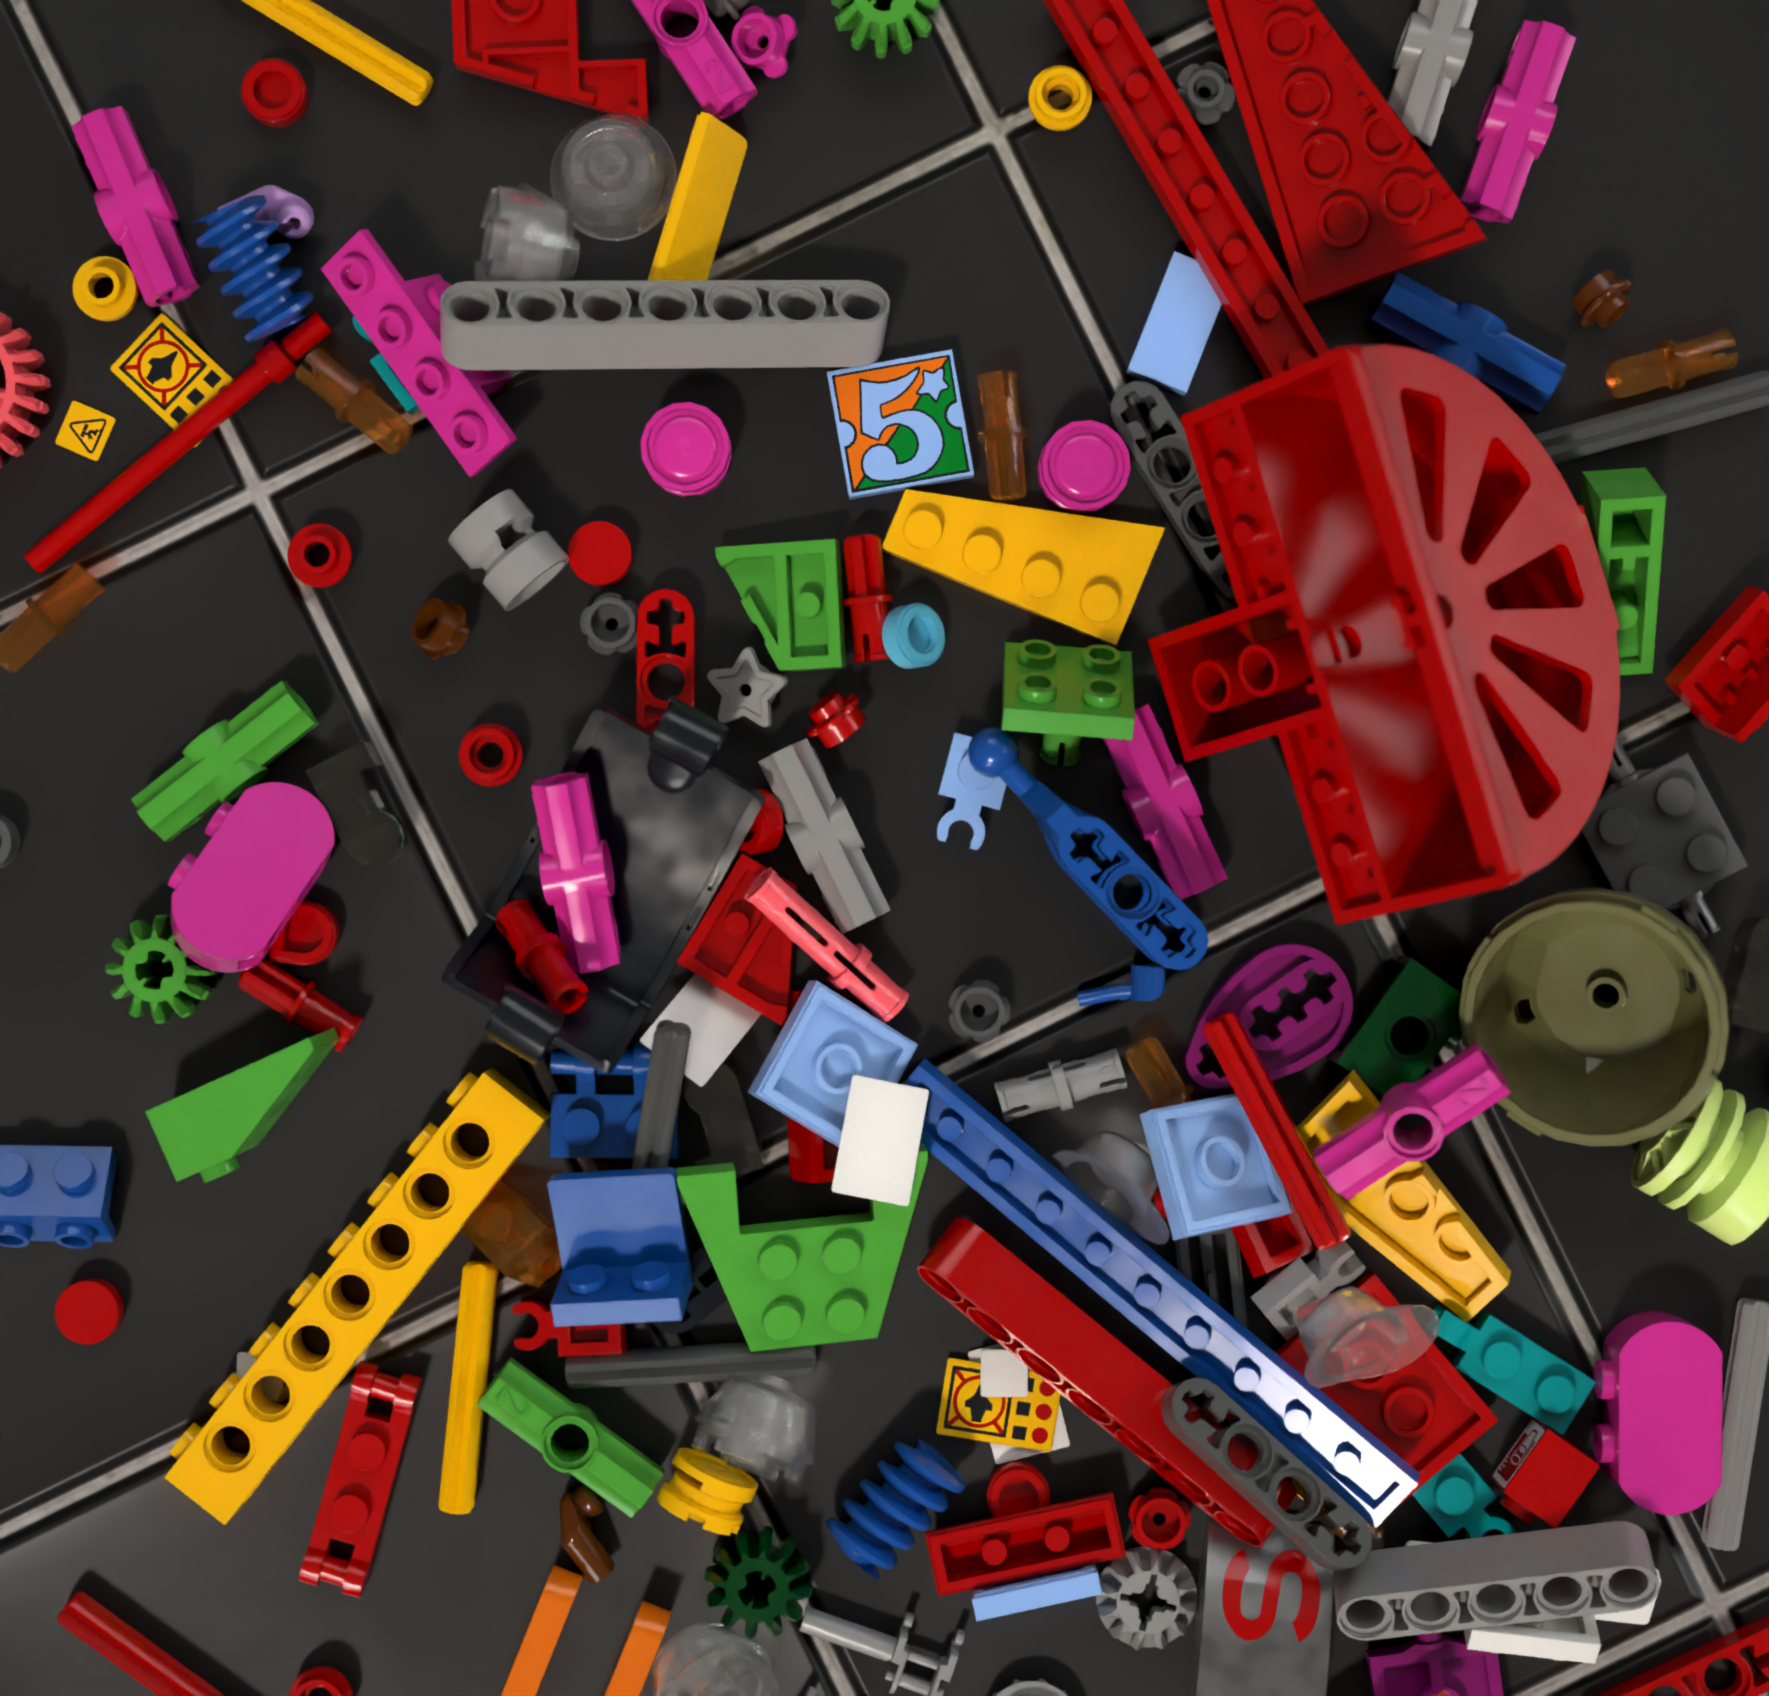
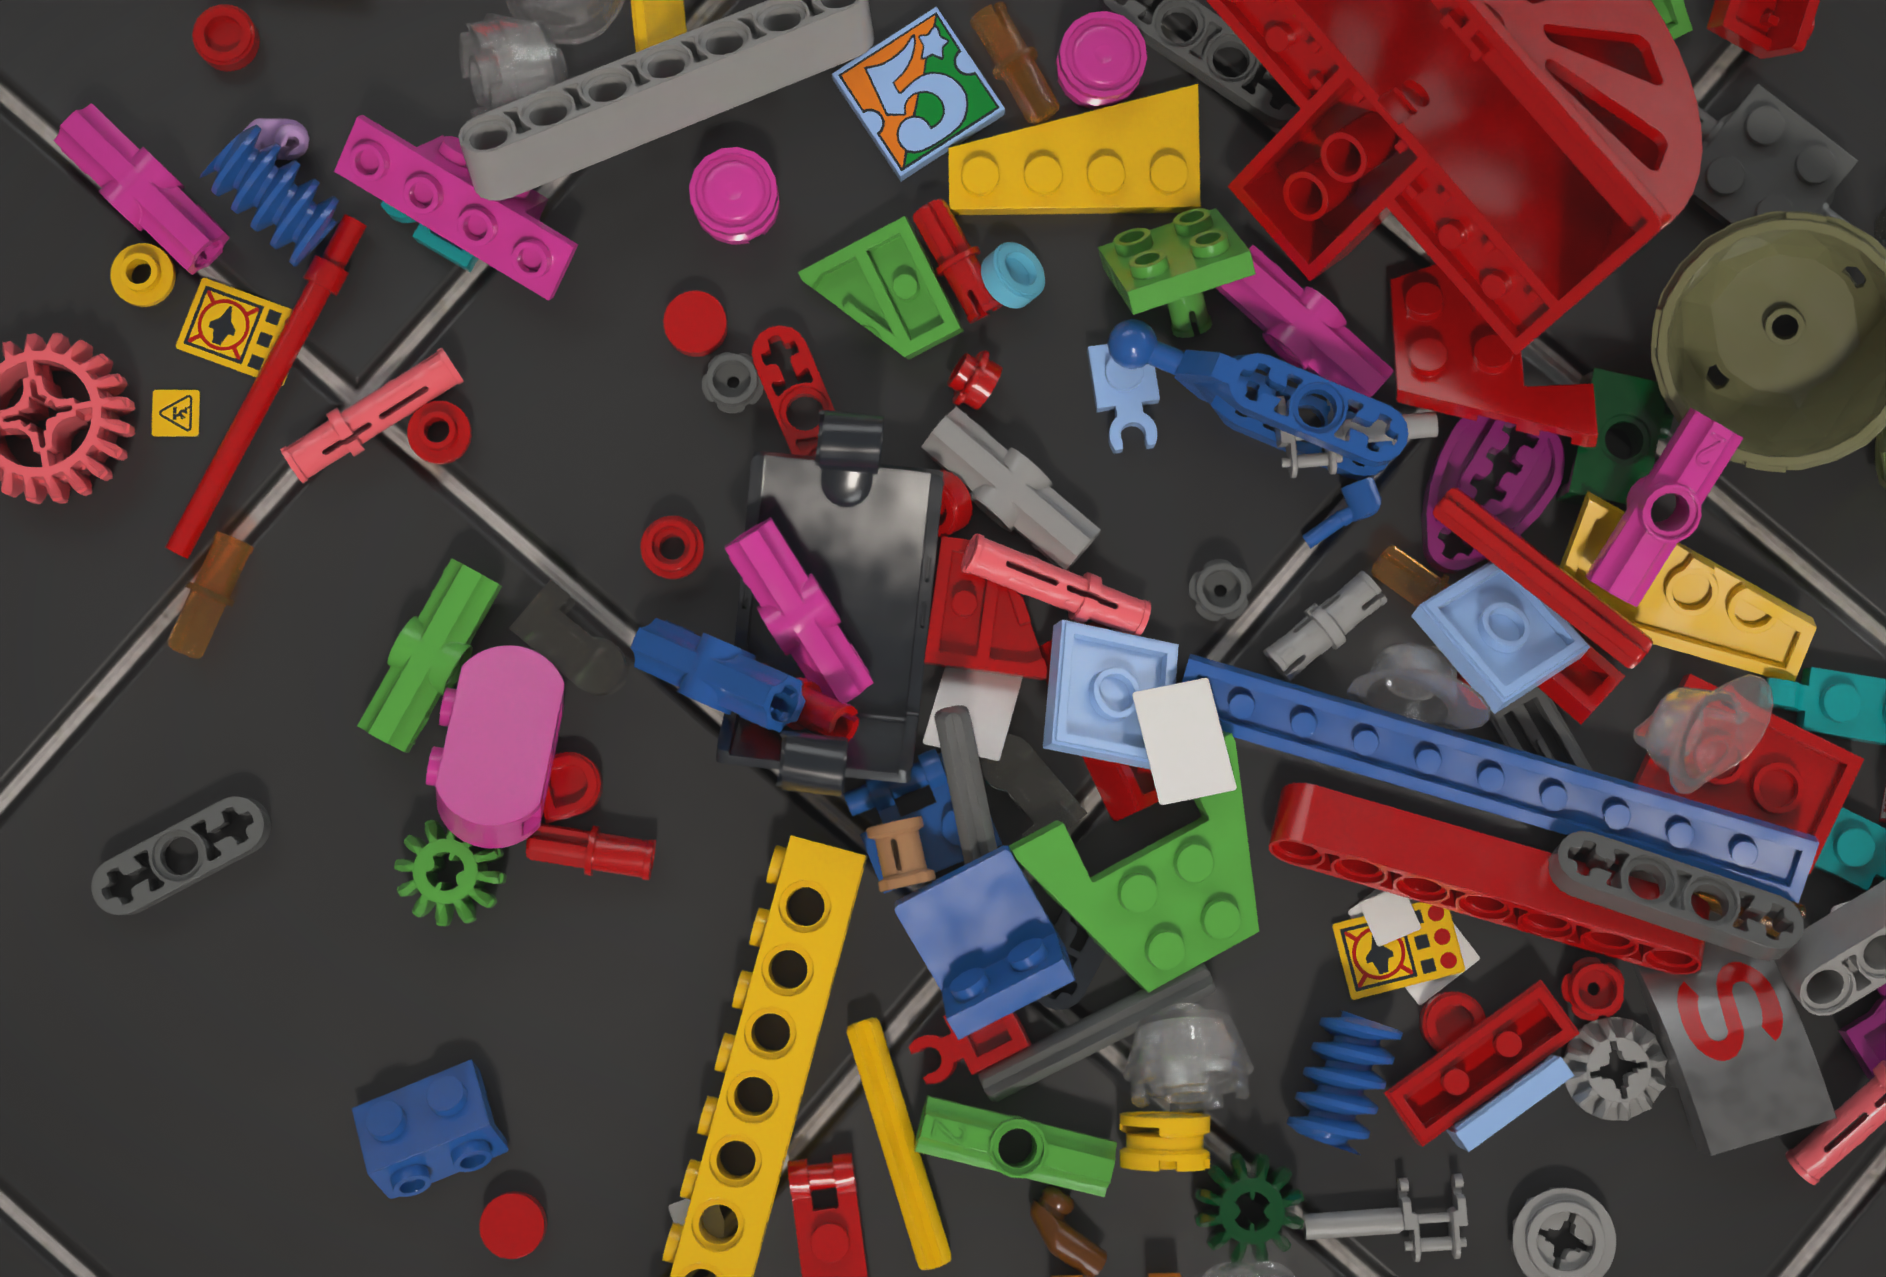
camera: 25 degrees left, 5 degrees down
(235, 1112) = (573, 973): bright green slope -> none
(256, 514) = (371, 415): none -> coral pin
(355, 401) = (415, 279): clear orange axle -> none
(440, 627) = (577, 450): reddish brown plate -> none
(477, 898) = (718, 674): none -> blue piece
(514, 1236) = (884, 980): clear orange bracket -> none
(529, 556) = (607, 349): light grey wheel -> none
(576, 1133) = (900, 853): none -> medium nougat bush
(763, 689) = (894, 375): light grey plate -> none
(1219, 936) = (1419, 426): none -> light grey piece
(1284, 907) = (1462, 368): none -> red wing
(1304, 1284) = (1629, 708): light grey plate -> none

